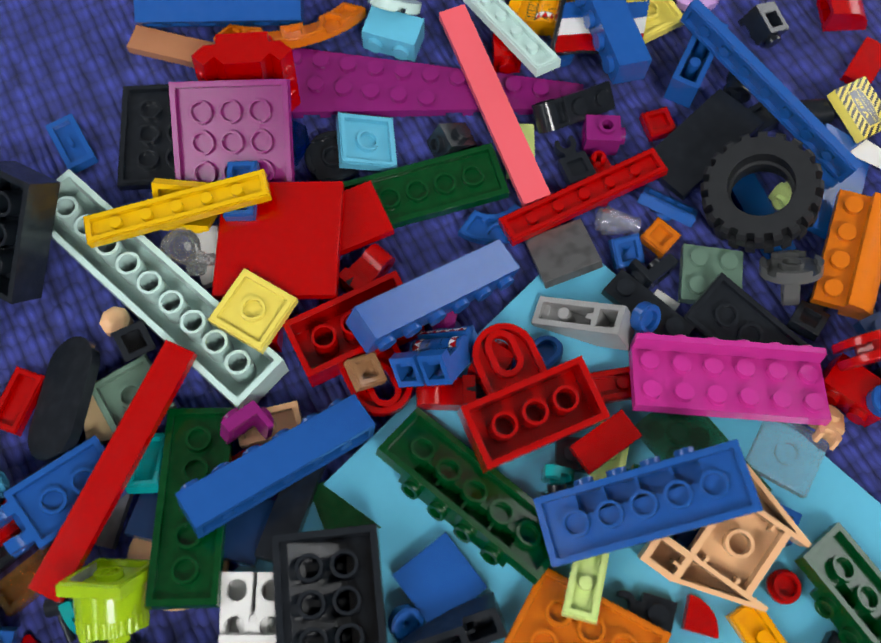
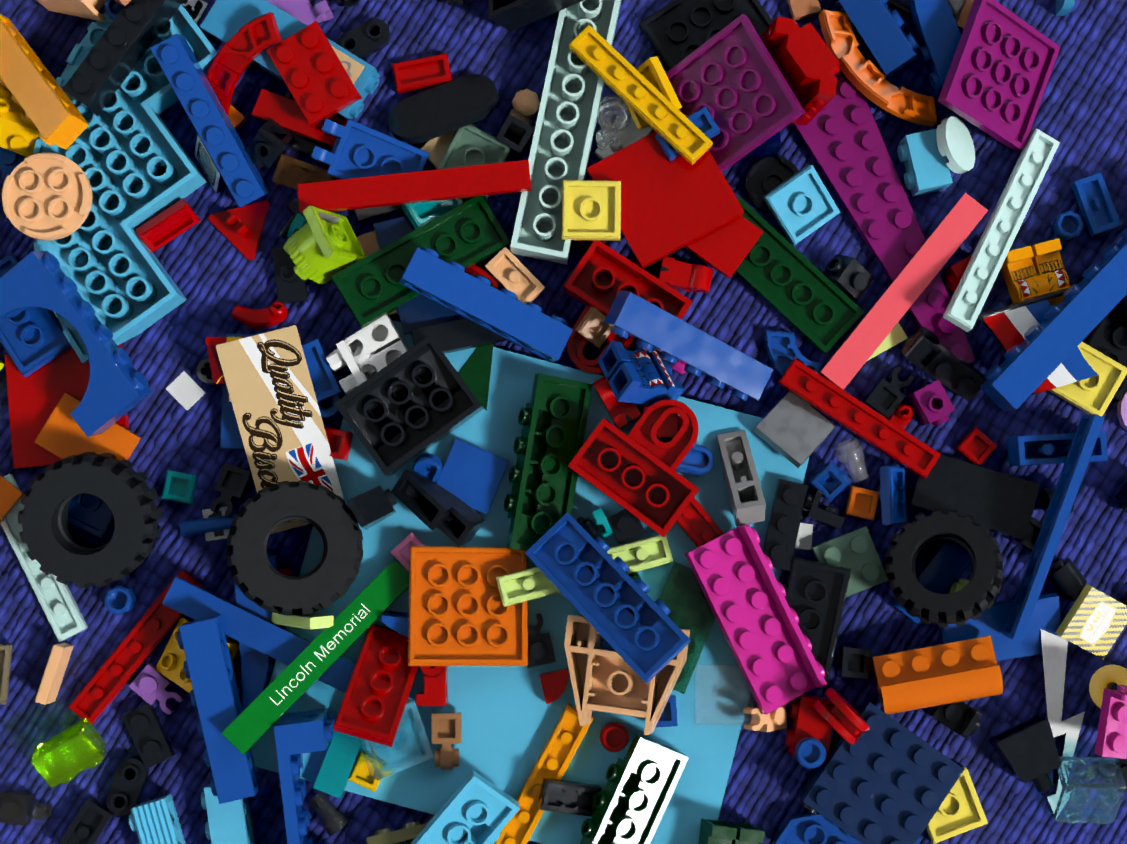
camera: 60 degrees right, 15 degrees up
(241, 420) = (500, 255): magenta bracket -> none
(605, 442) = (646, 545): red tile -> none
(645, 317) = (769, 525): blue tile -> none
(791, 270) = (887, 627): dark grey tile -> none

